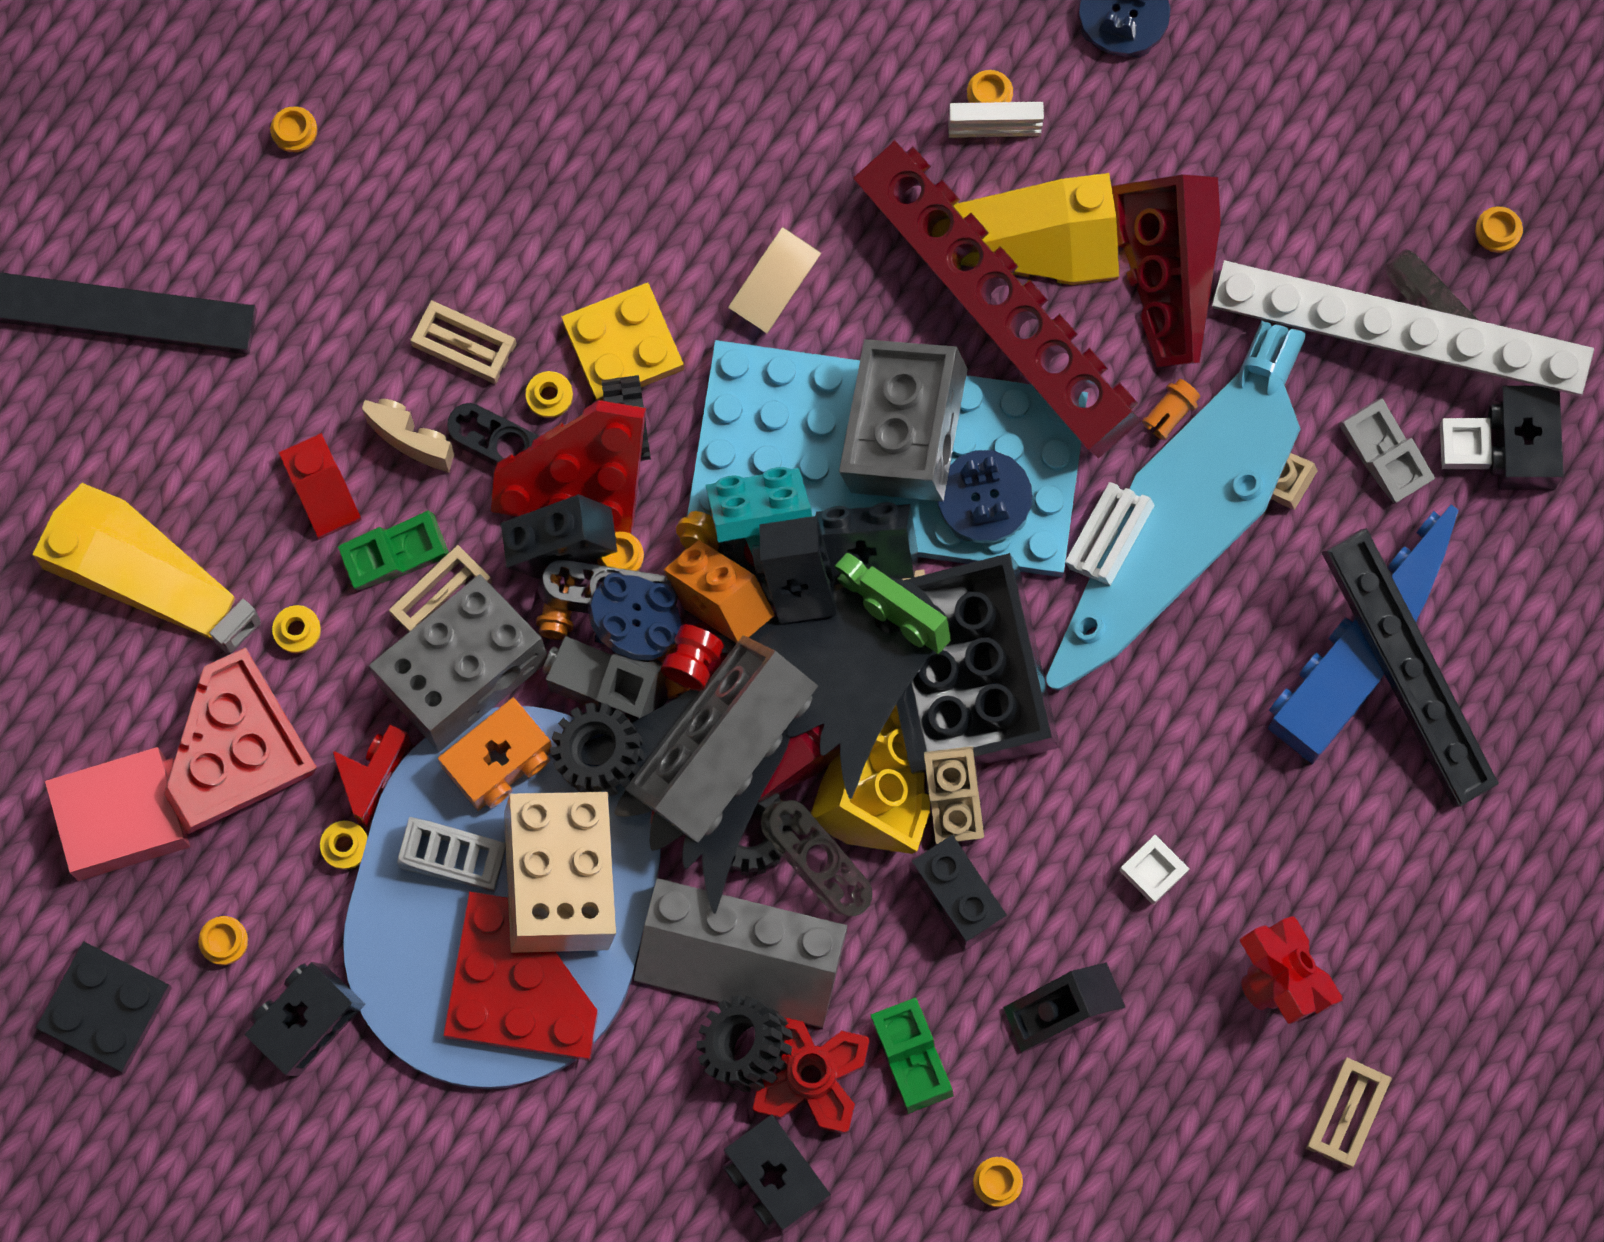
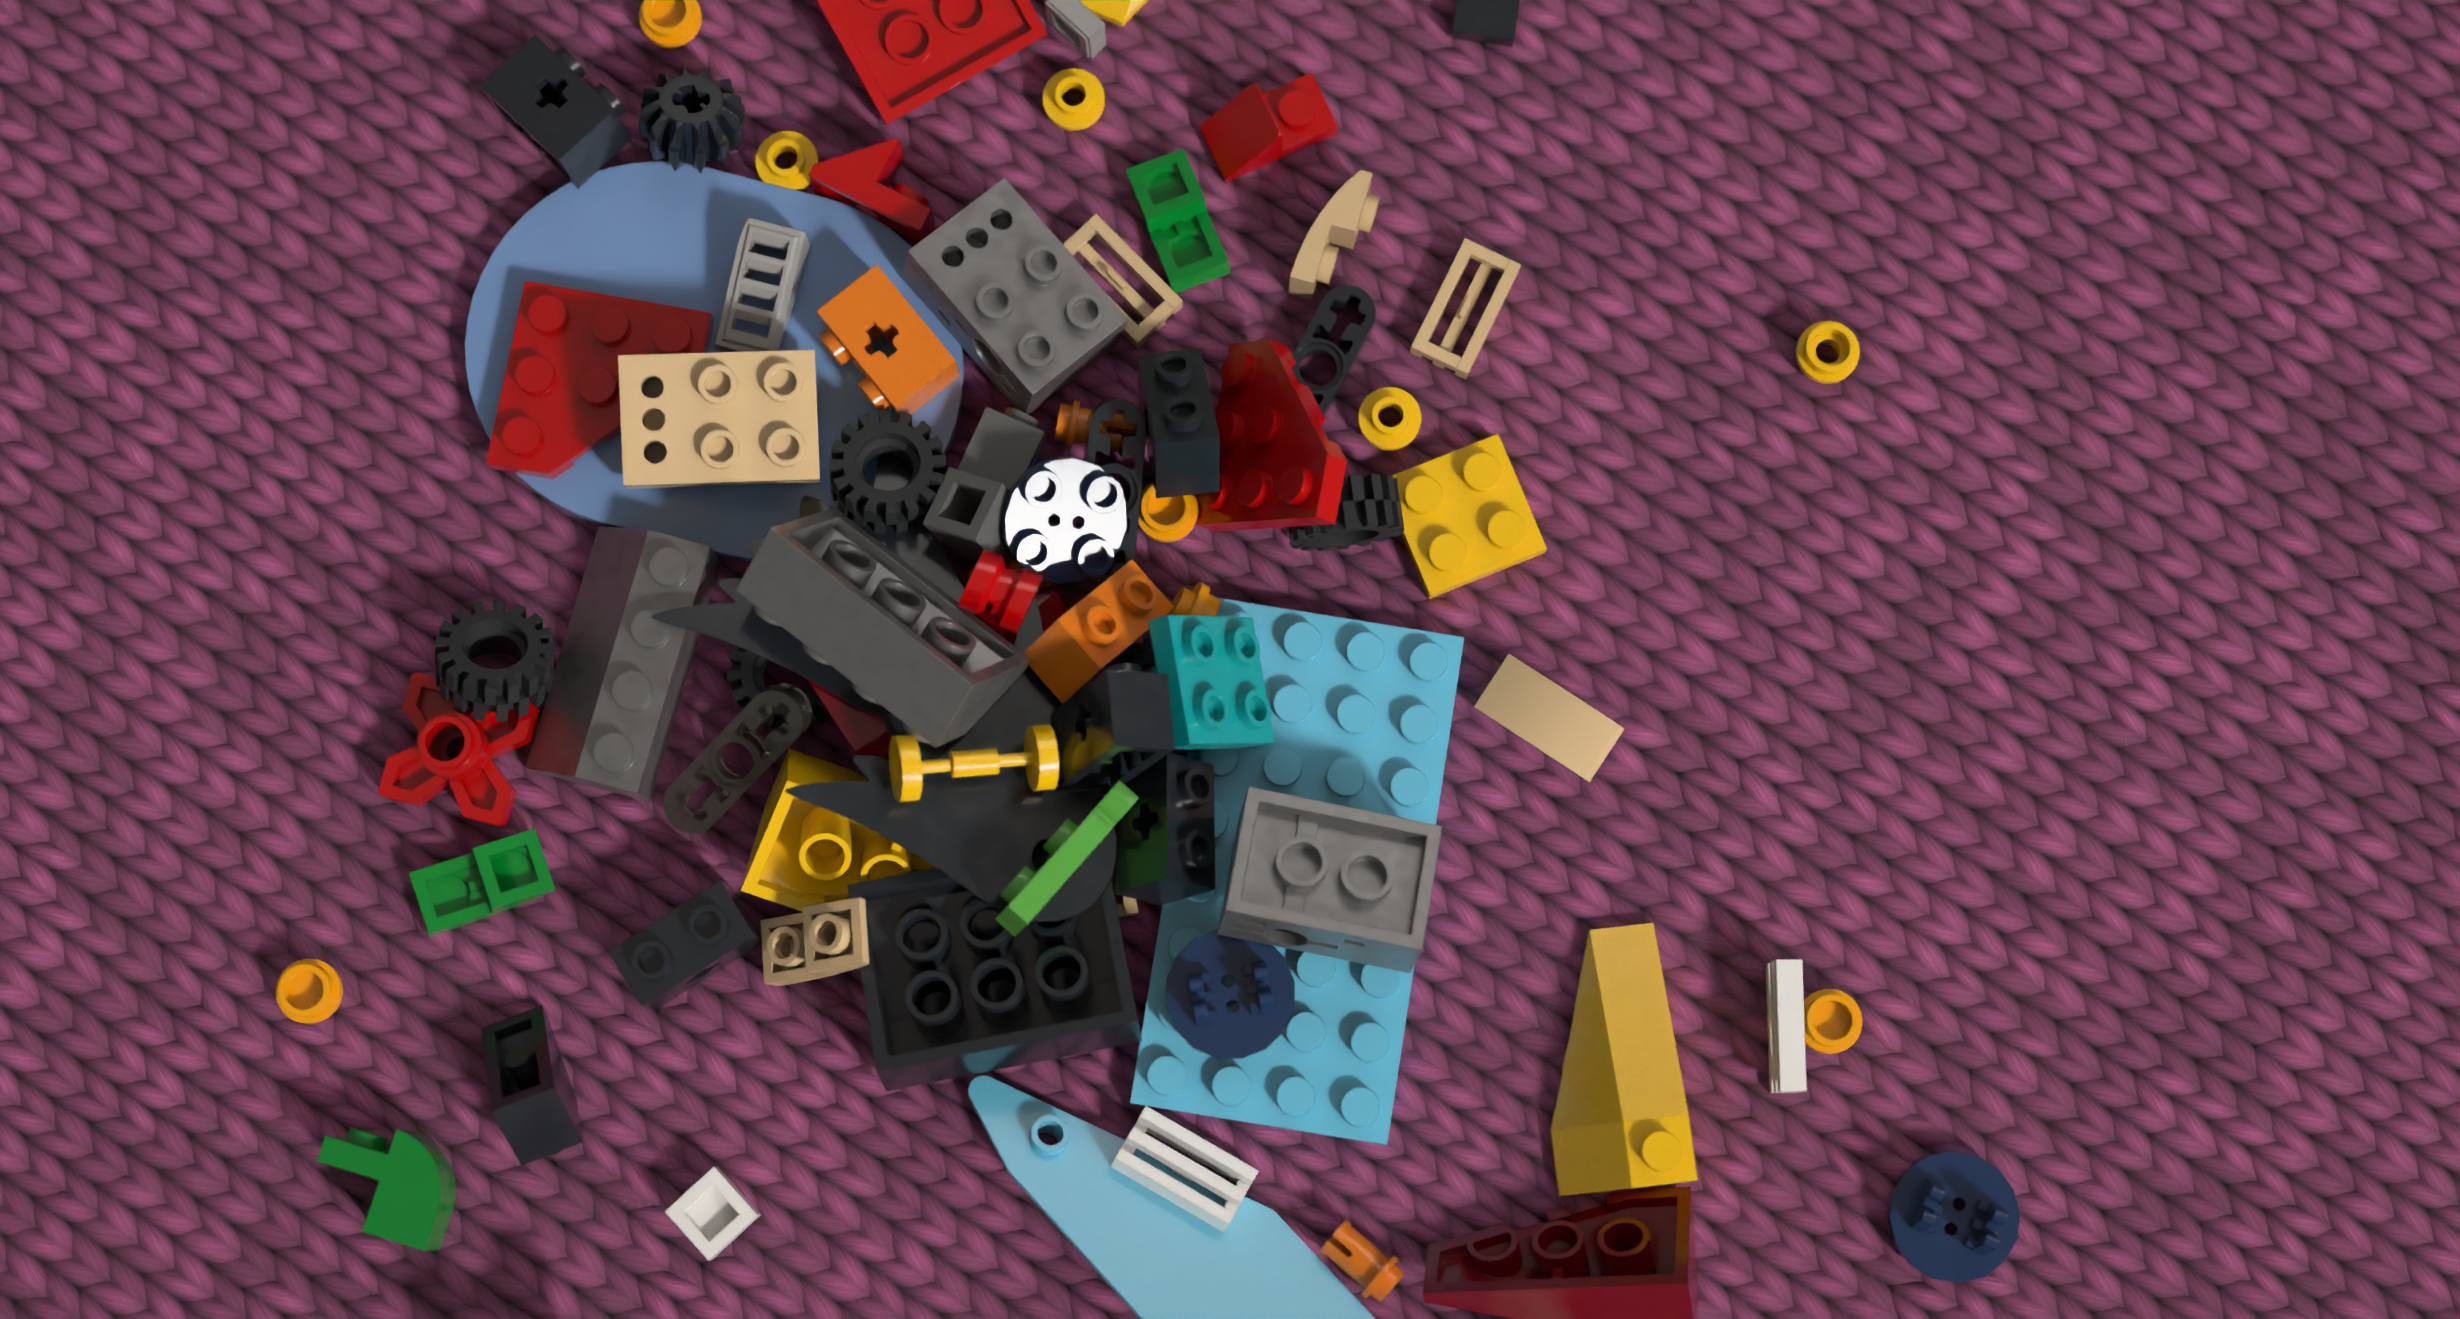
camera: 90 degrees right, 5 degrees up
(293, 129) = (1762, 87): light orange plate -> none
(312, 914) = (691, 119): none -> black gear
(498, 74) = (1830, 334): none -> yellow plate
(771, 1147) = (361, 700): black brick -> none
(831, 709) = (1039, 759): none -> yellow wheel
(886, 183) = (1678, 868): dark red brick -> none
(1145, 1090) = (413, 1187): none -> green brick

